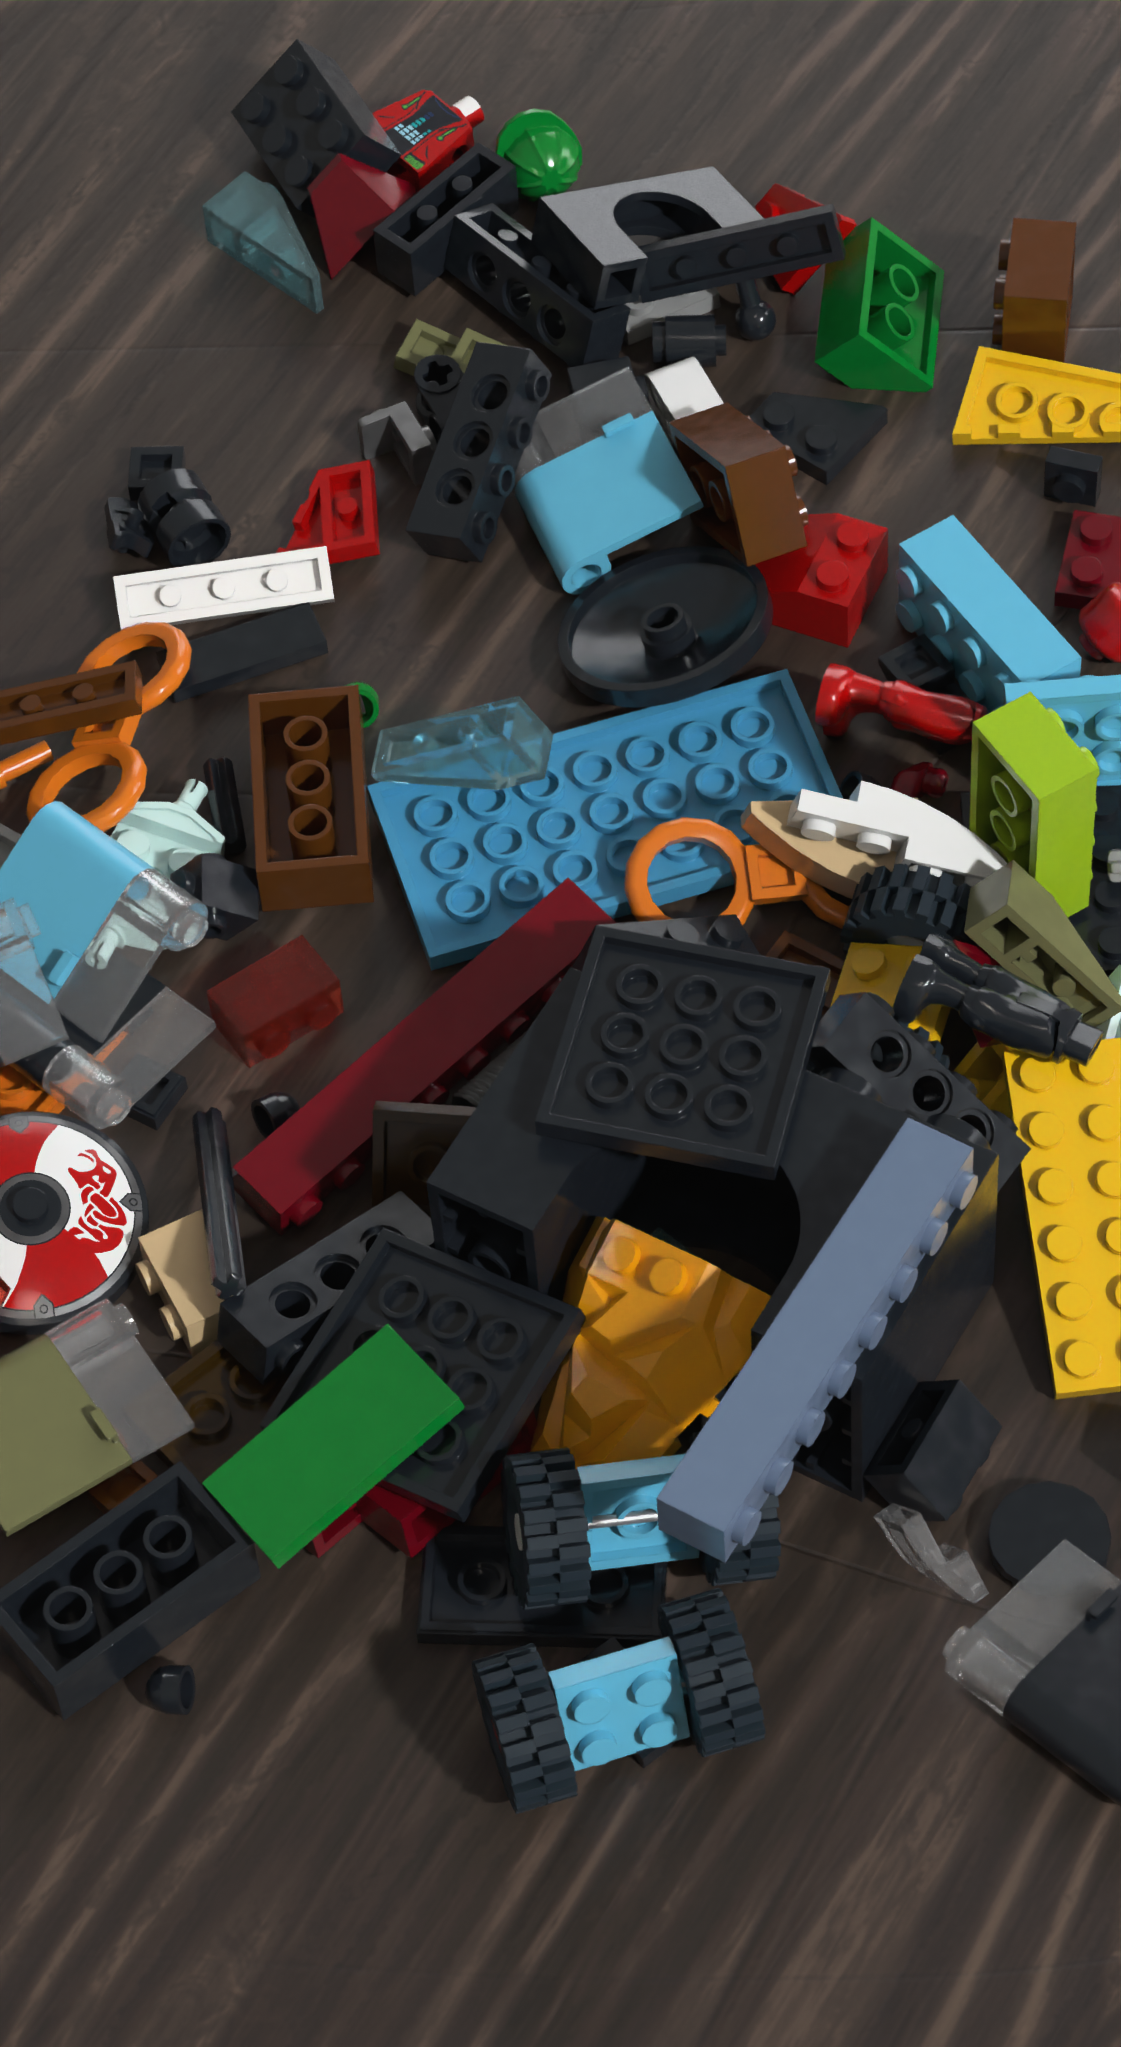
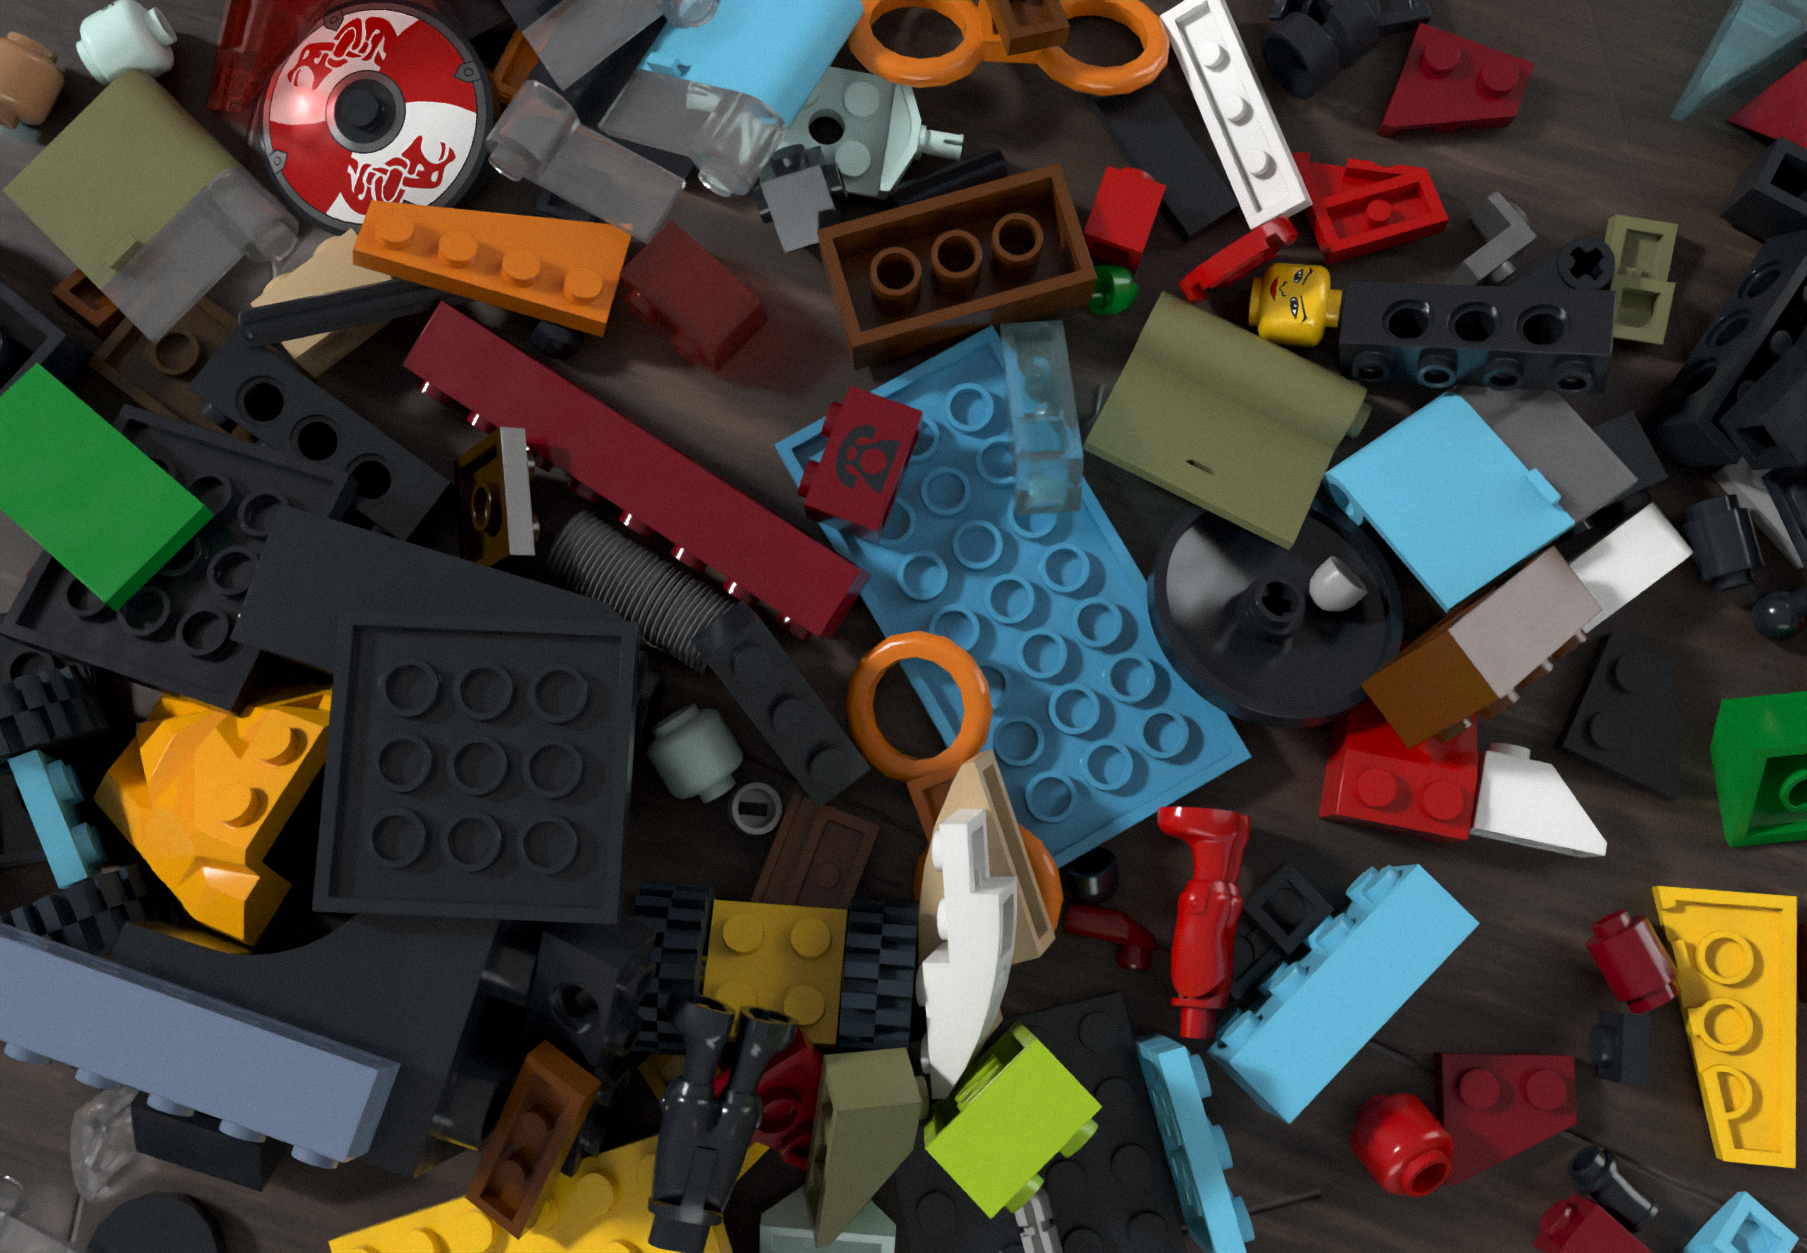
camera: 75 degrees right, 25 degrees up
(203, 1123) = (510, 261): none -> orange wing
(245, 446) = (1454, 85): none -> dark red wing
(296, 668) = (1122, 217): none -> red brick
(365, 598) = (1239, 259): none -> red tile
(410, 578) = (1294, 304): none -> yellow head
(471, 879) = (862, 463): none -> dark red brick
(492, 634) = (1226, 419): none -> olive door
(660, 584) = (1336, 586): none -> light grey hinge
(874, 489) = (1530, 805): none -> white slope
(1006, 457) = (1633, 961): none -> dark red brick
(1026, 1174) = (532, 1138): none -> reddish brown plate

